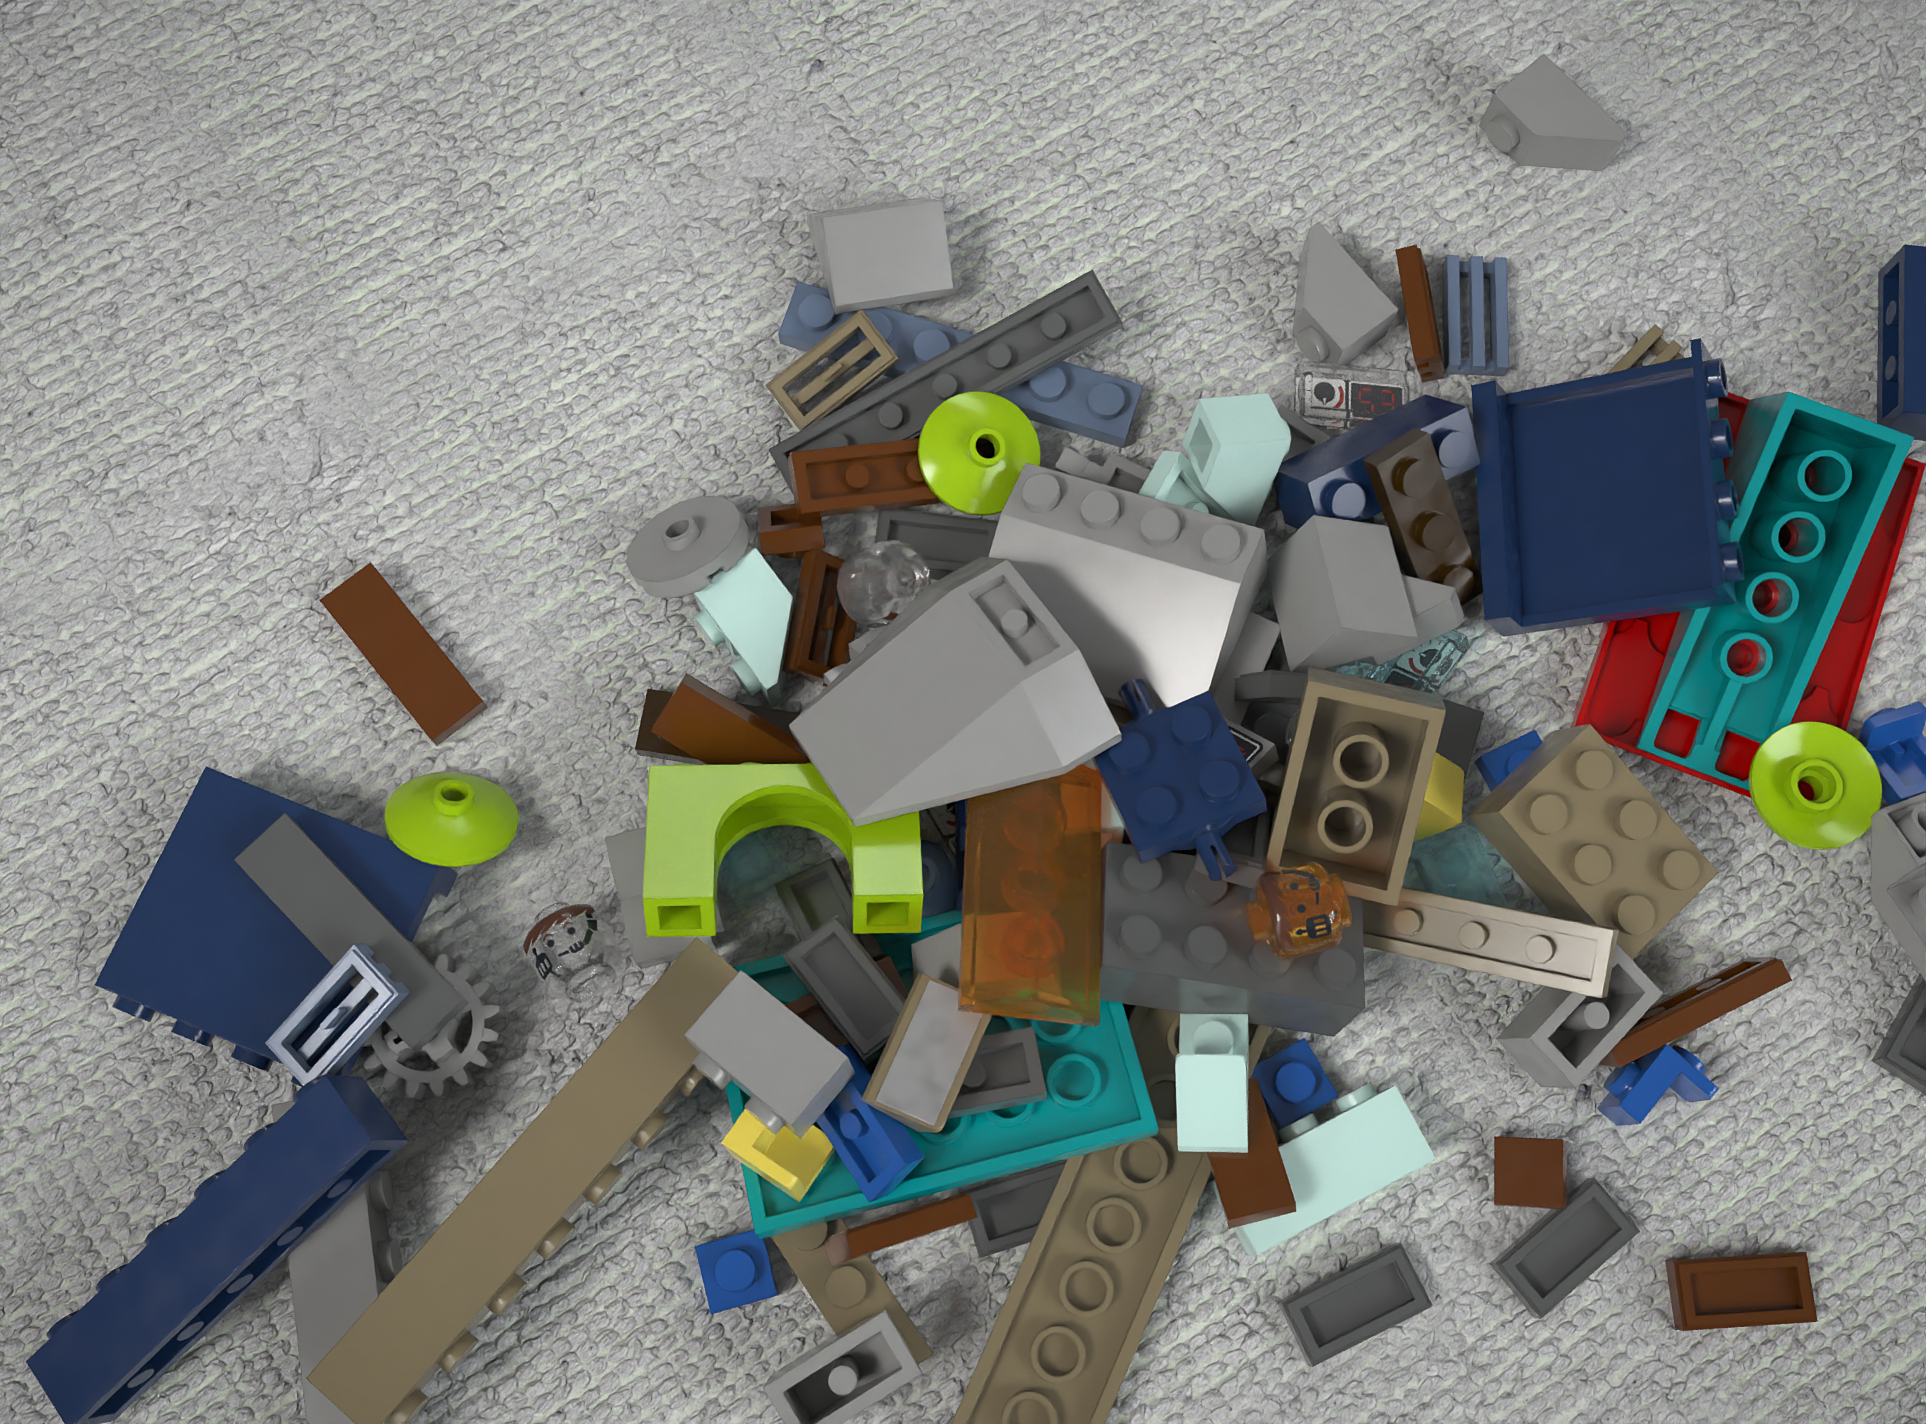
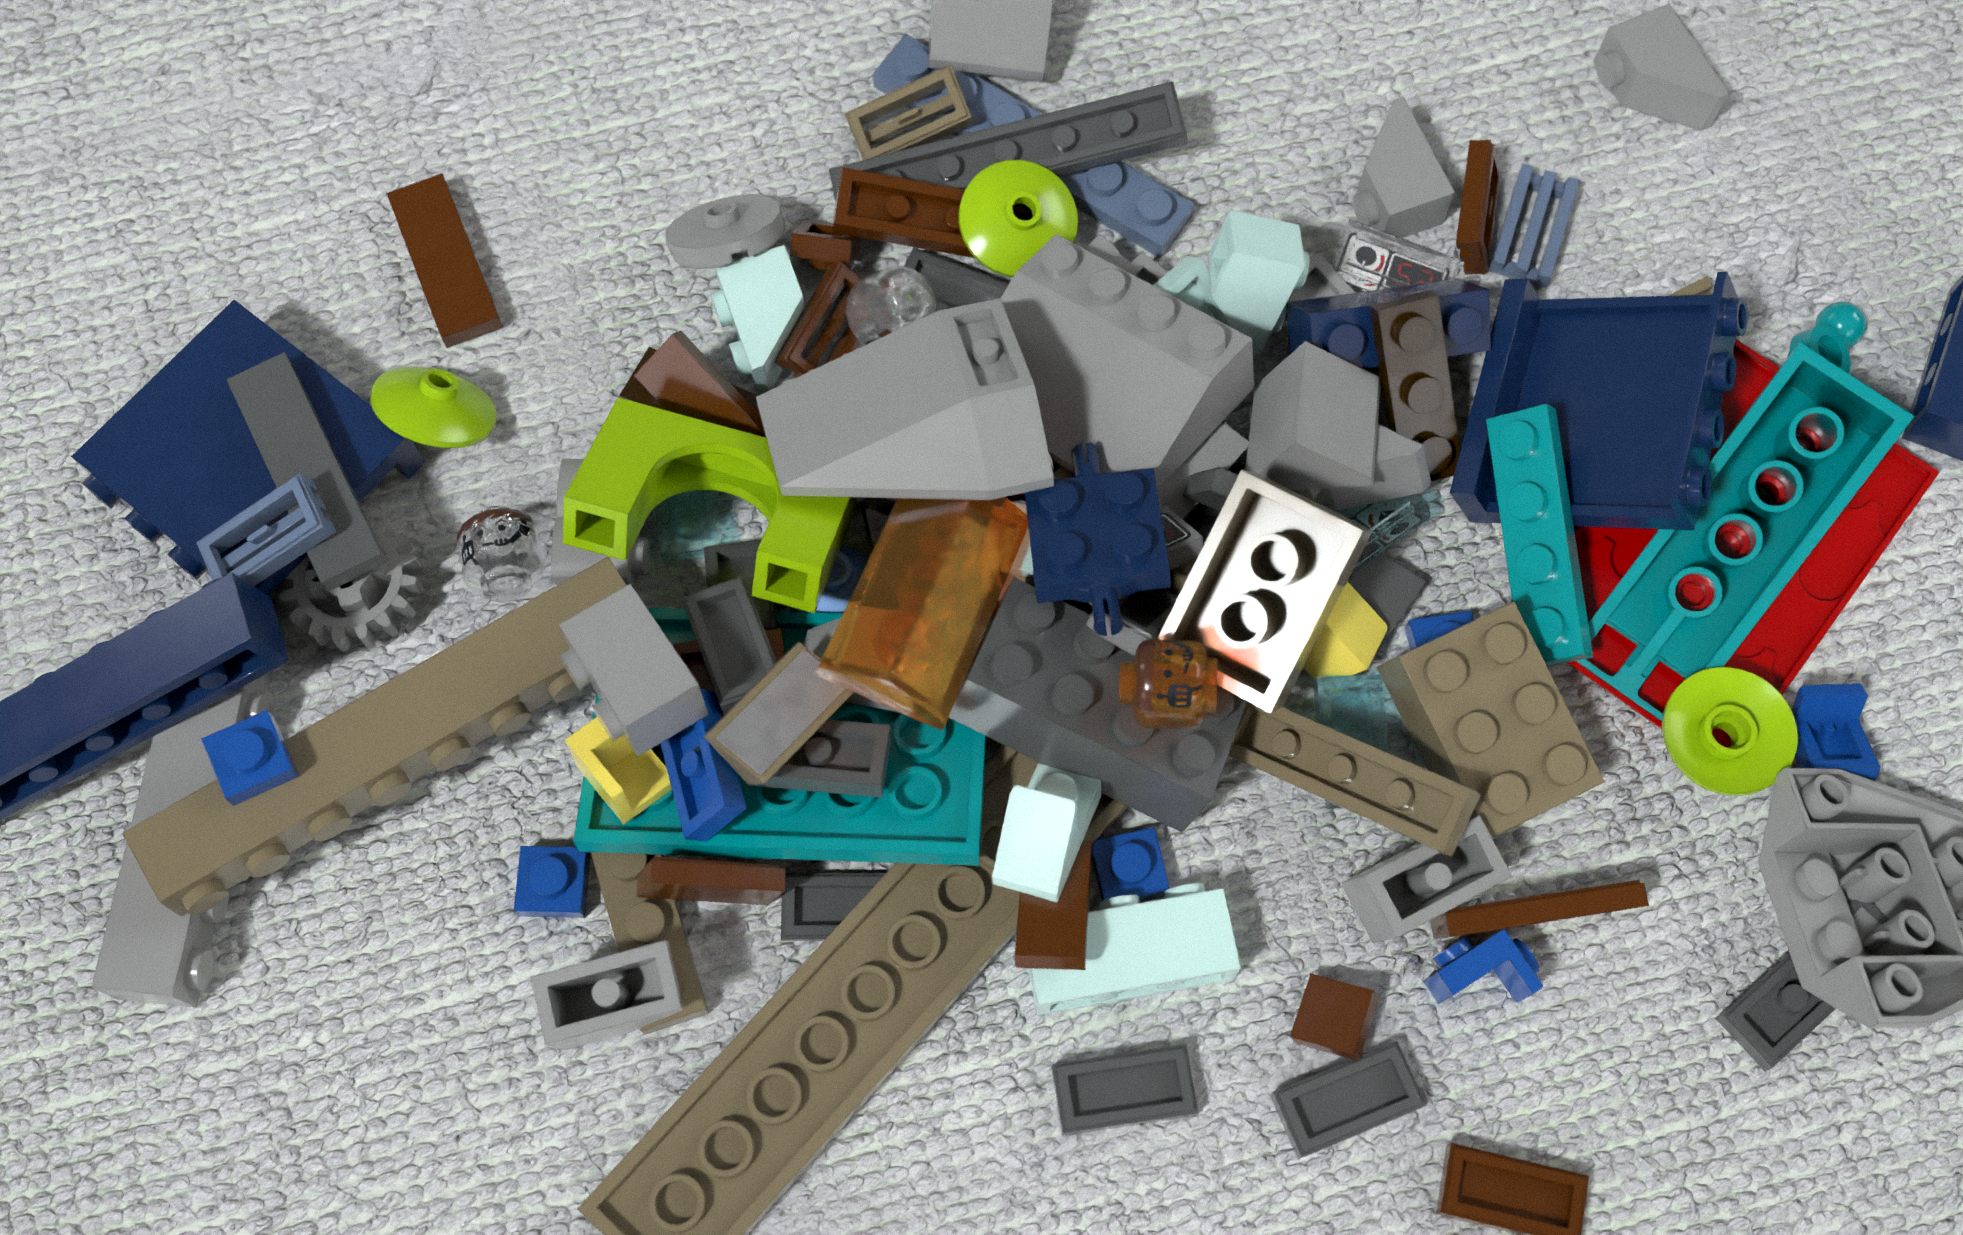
camera: 20 degrees right, 5 degrees down
(411, 1261) = (250, 757): none -> blue plate
(1583, 638) = (1539, 532): none -> teal plate
(1784, 367) = (1835, 330): none -> teal plate

